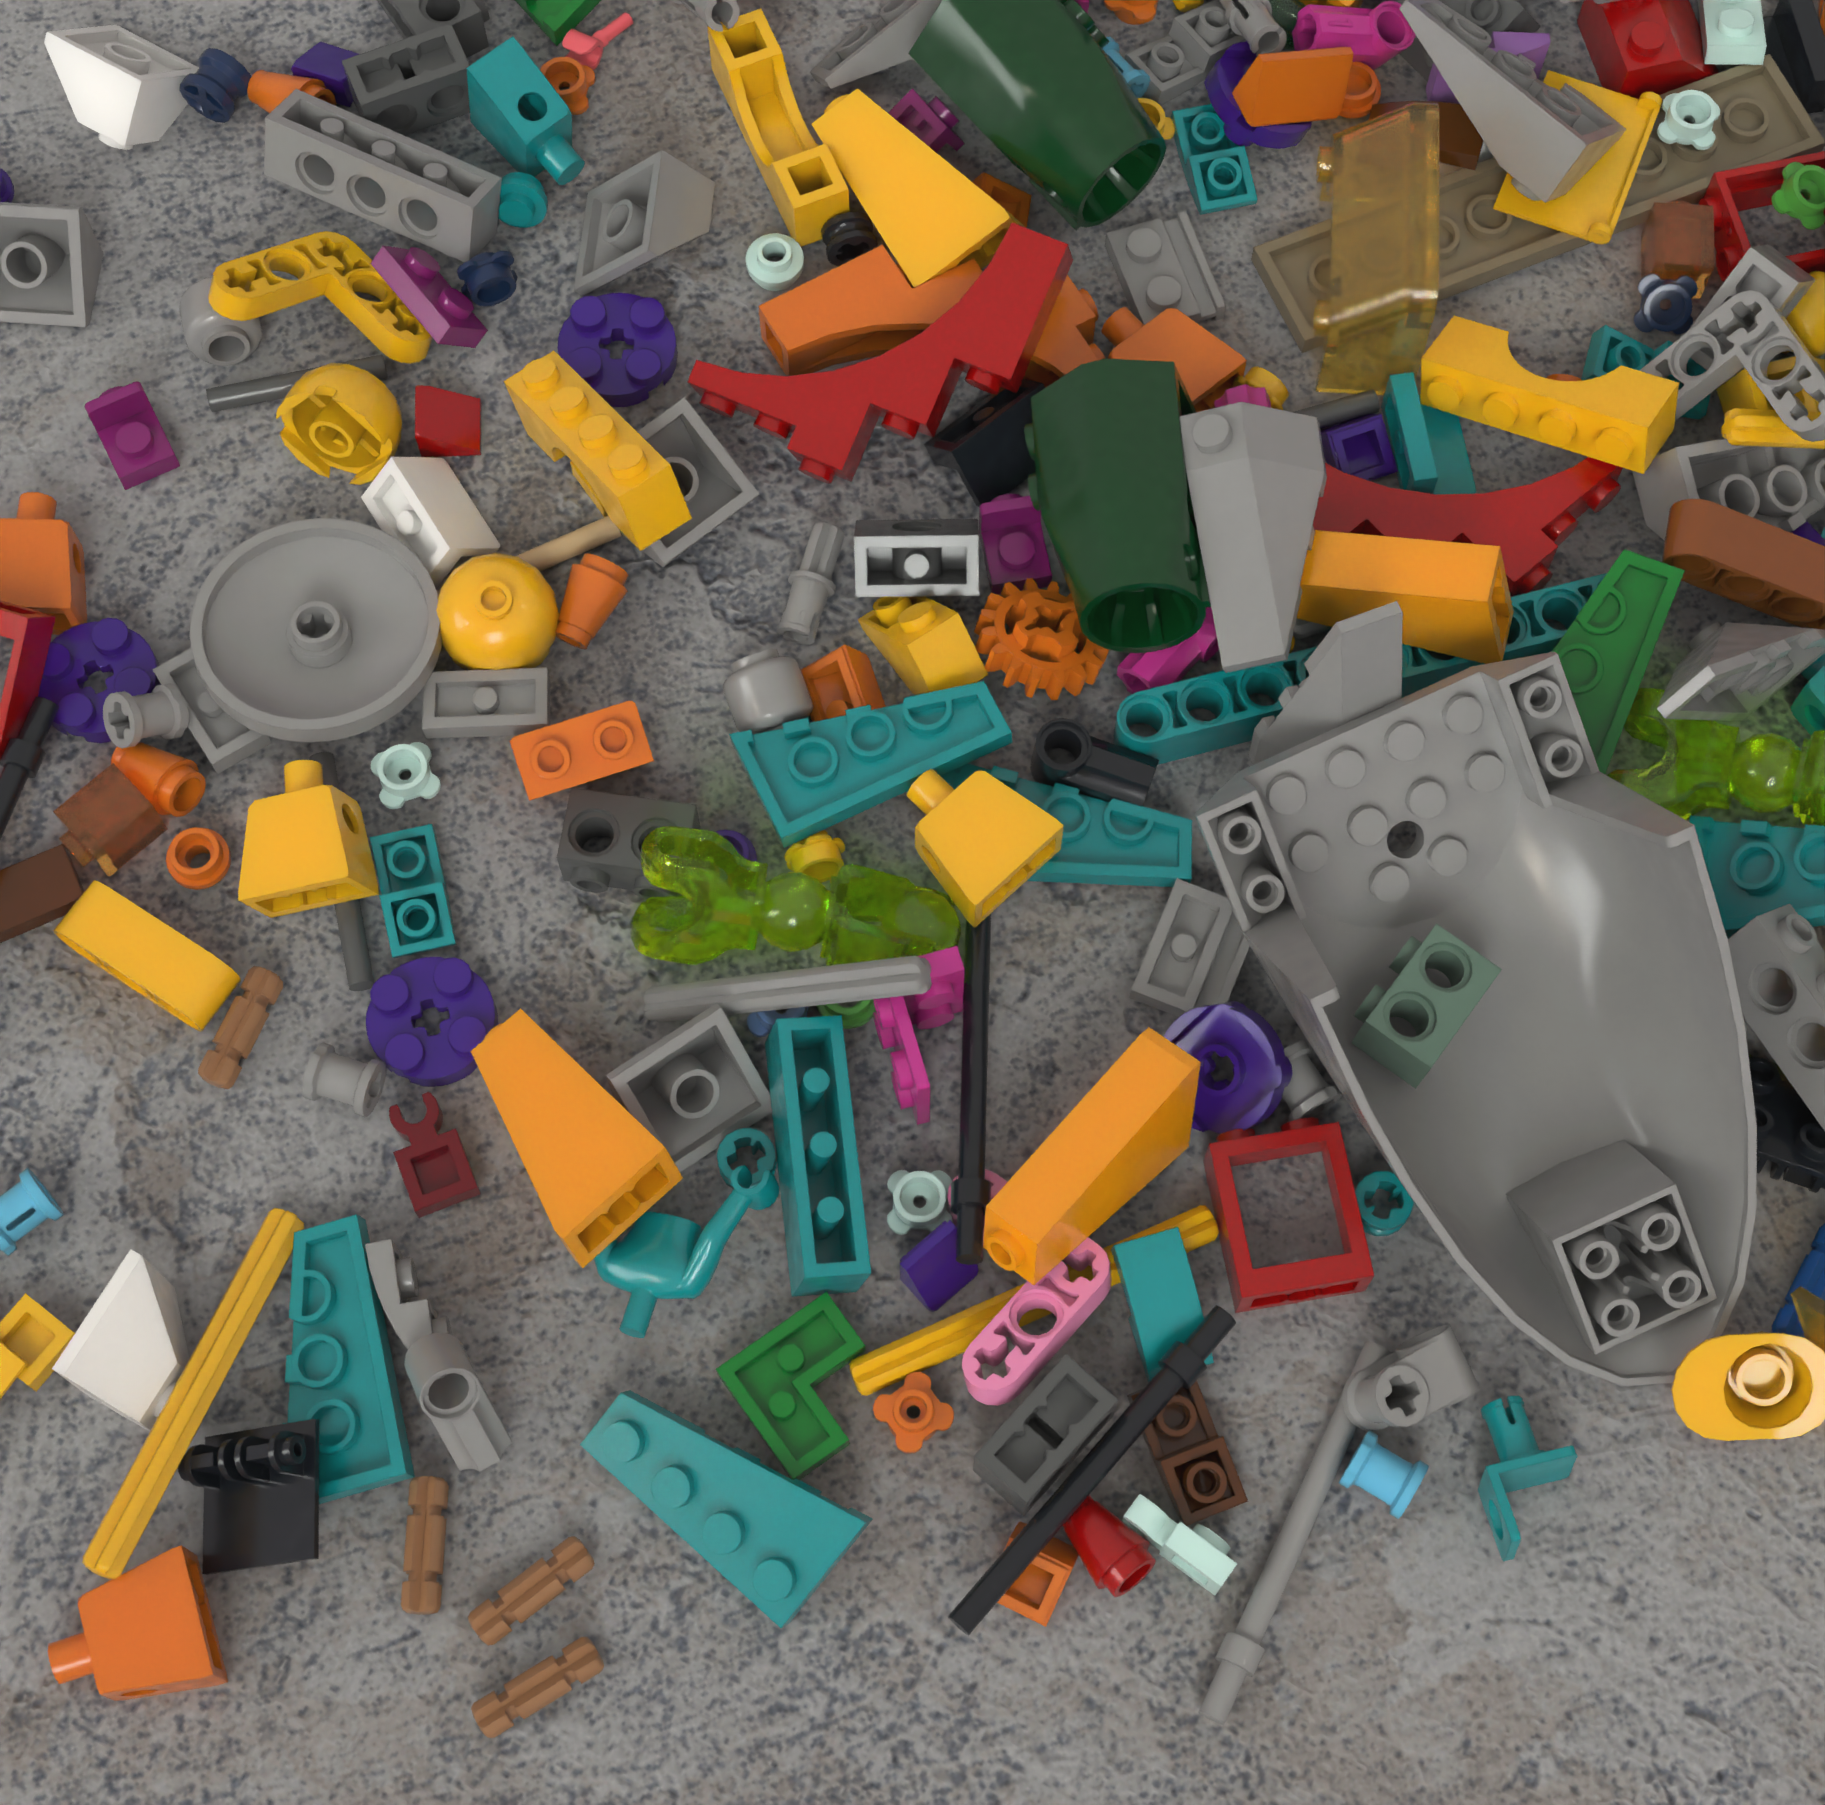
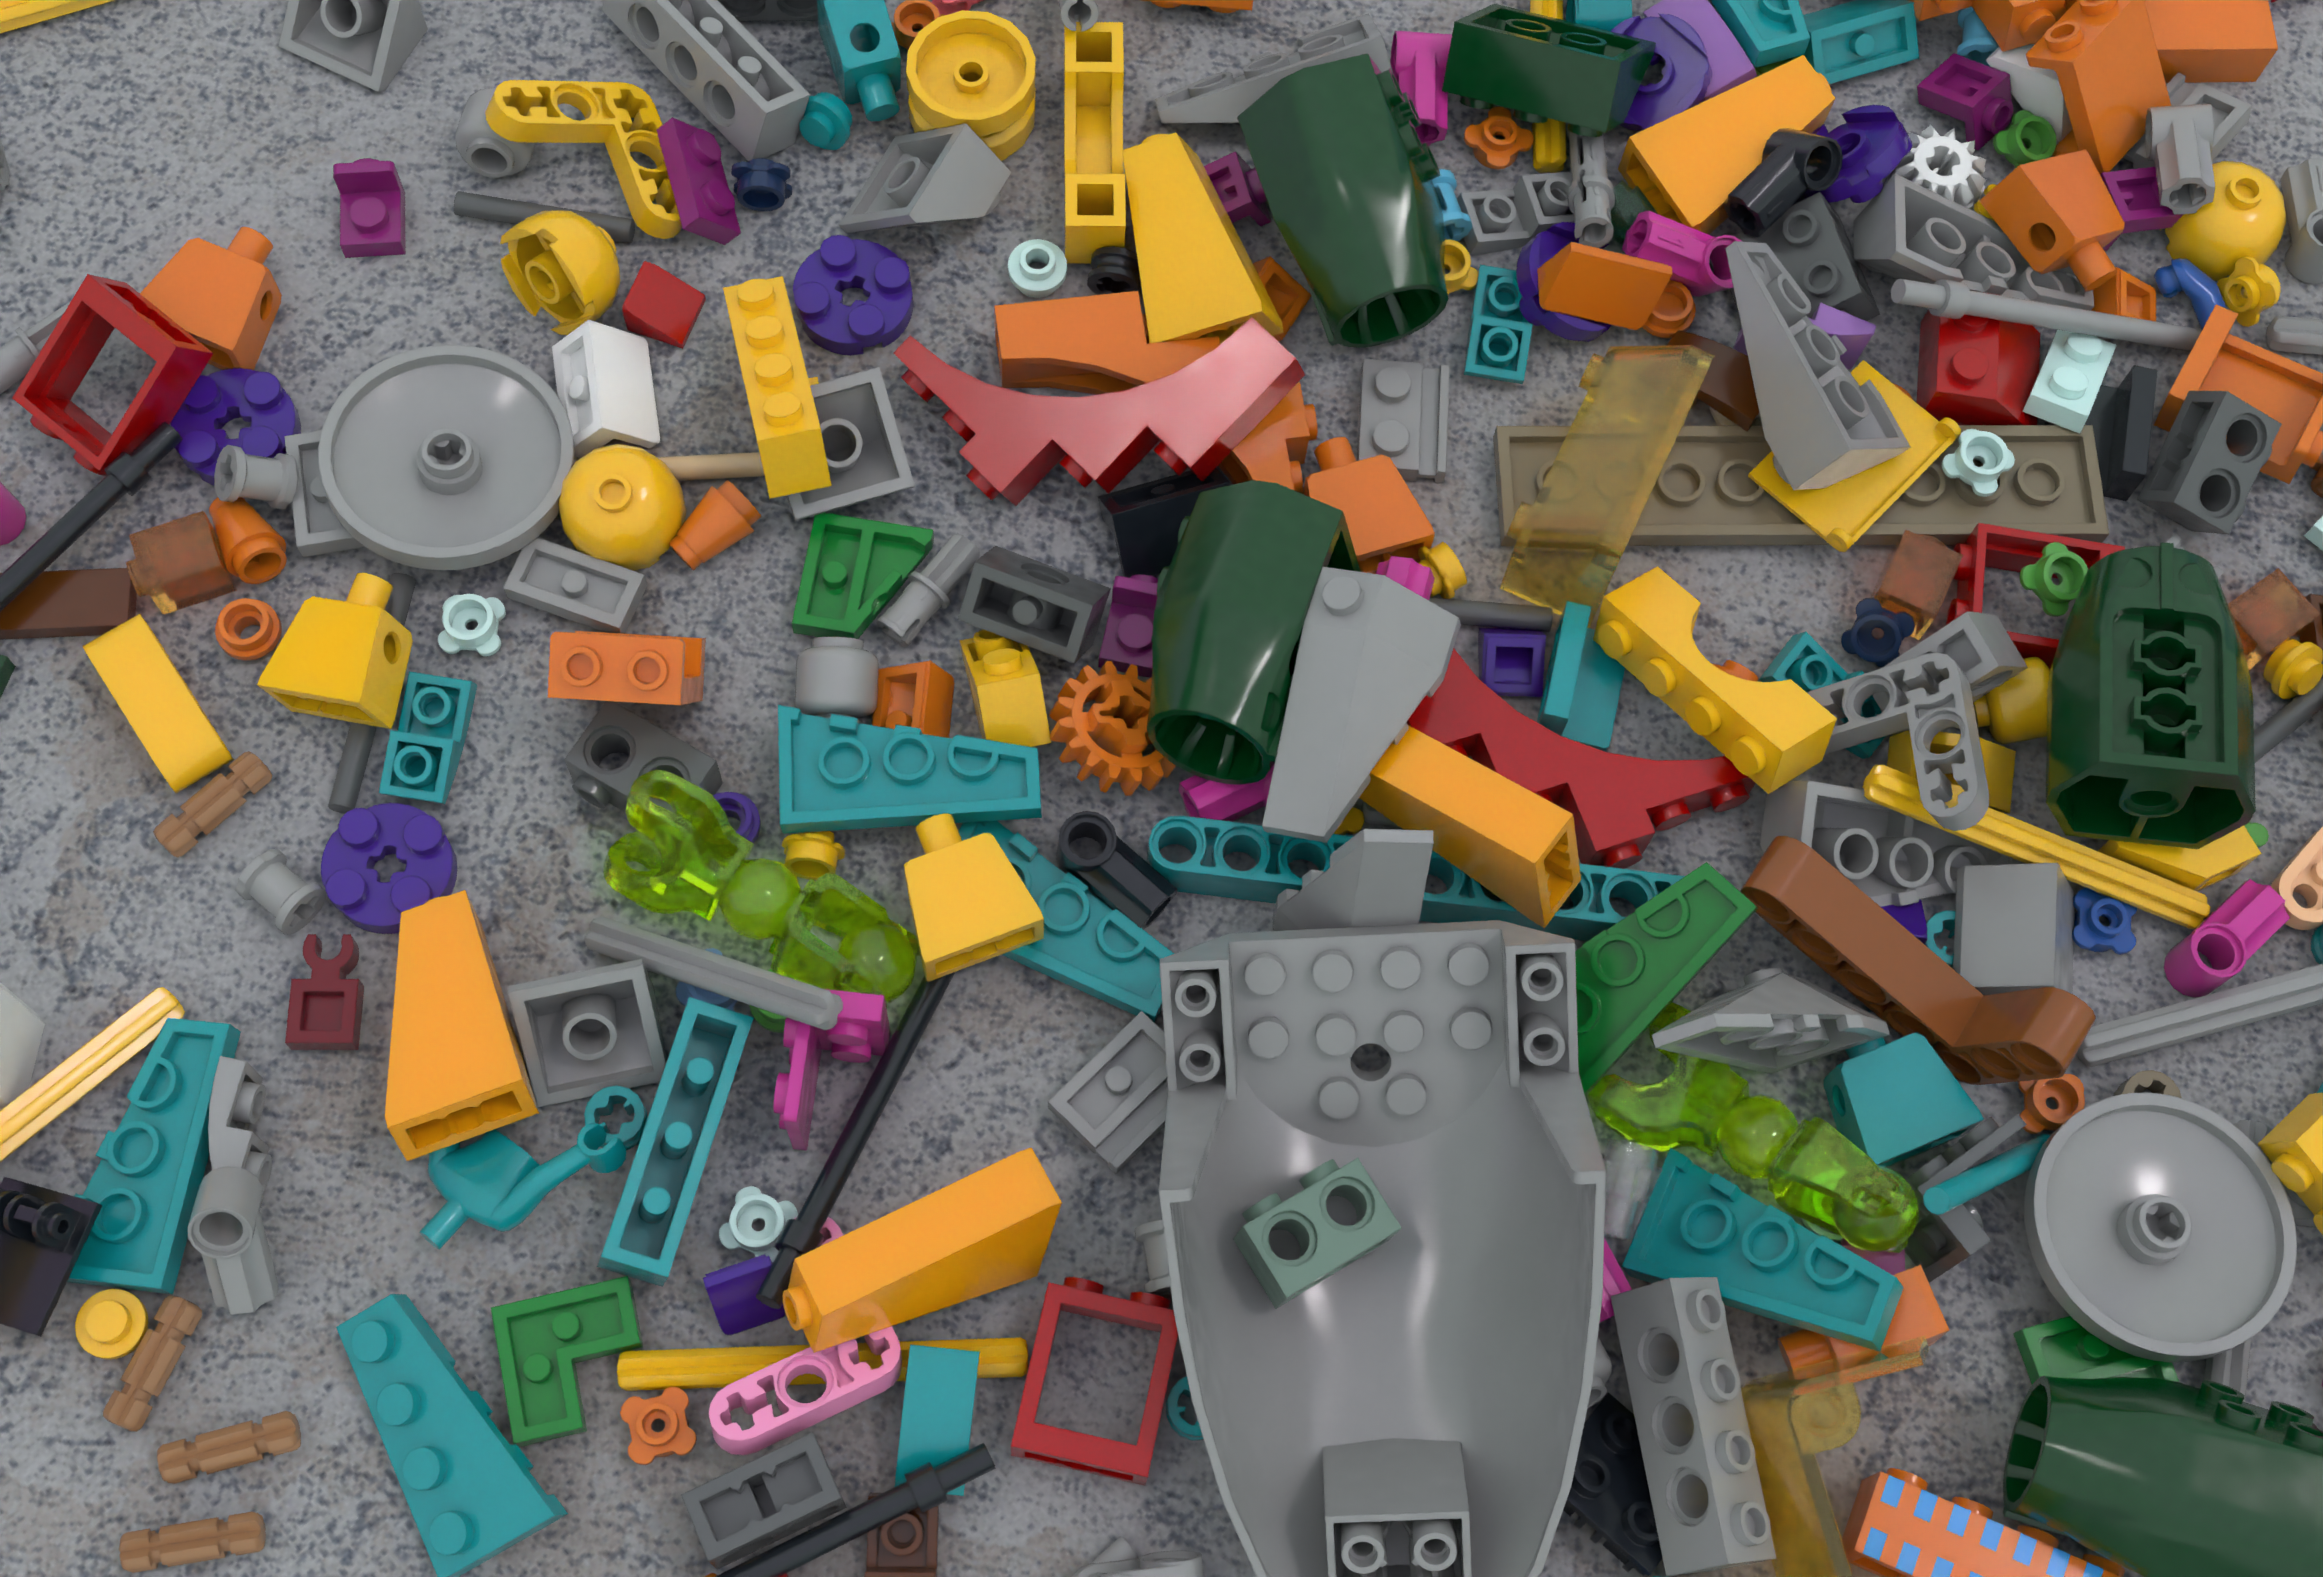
camera: 15 degrees right, 0 degrees up
(370, 1526) = (111, 1324): none -> yellow plate
(642, 103) = (973, 73): none -> yellow wheel
(736, 593) = (854, 572): none -> green wing
(1258, 1062) = (1131, 1213): dark purple plate -> none

